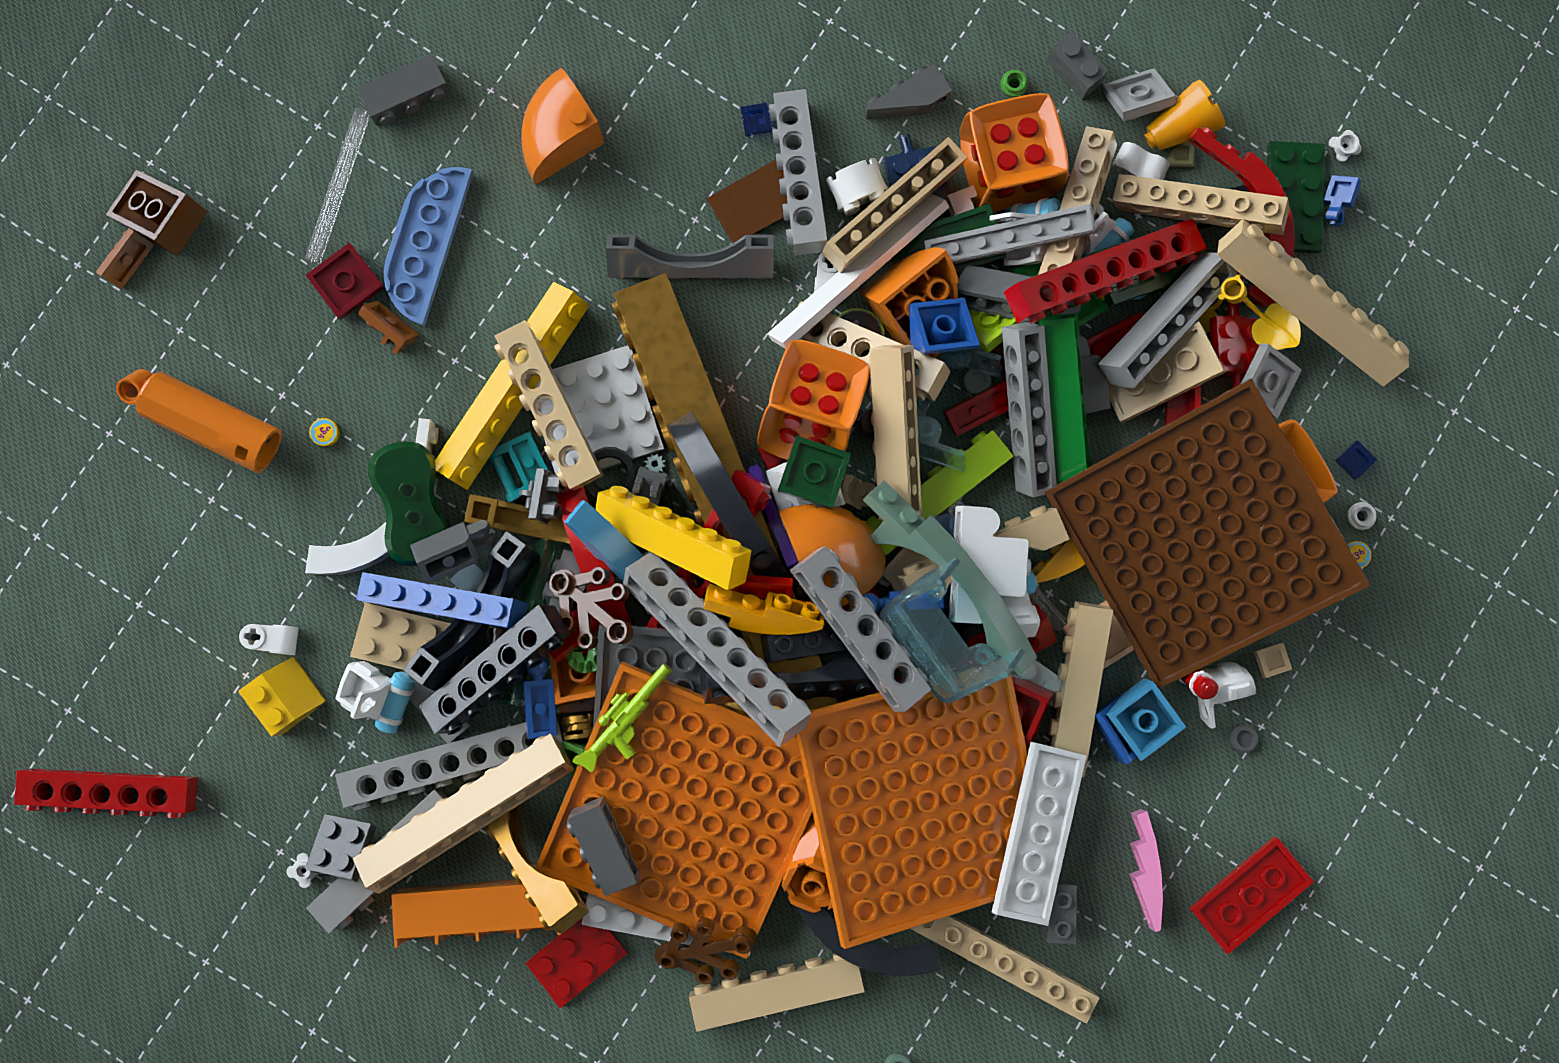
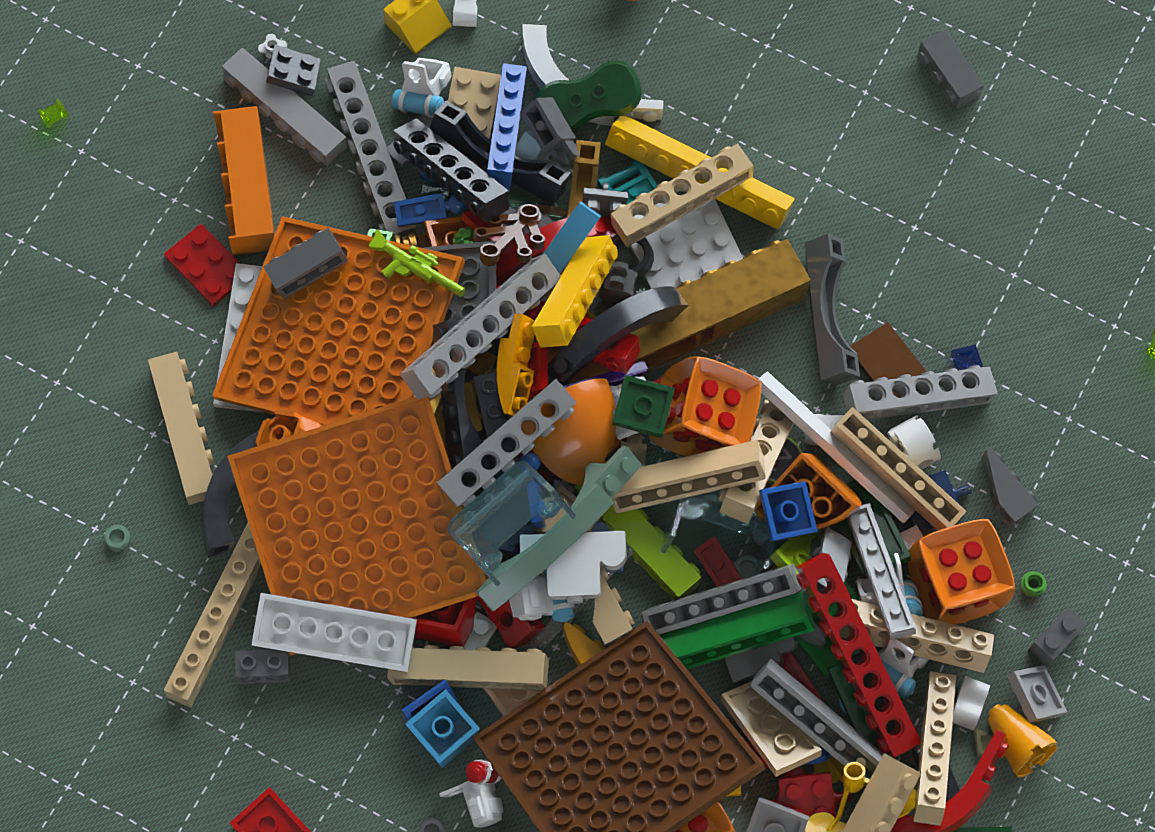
camera: 85 degrees right, 15 degrees down
(324, 432) = (644, 33): yellow tile -> none
(337, 186) = (858, 25): clear axle -> none
(344, 281) = (776, 37): dark red plate -> none
(389, 324) = (742, 74): dark orange plate -> none
(424, 240) = (819, 96): medium blue plate -> none
(463, 813) = (327, 156): brick -> none
(555, 899) = (332, 190): arch -> none
(557, 127) = (934, 192): orange brick -> none
(671, 955) = (211, 340): reddish brown plant -> none
(1148, 878) = (293, 747): bright pink slope -> none

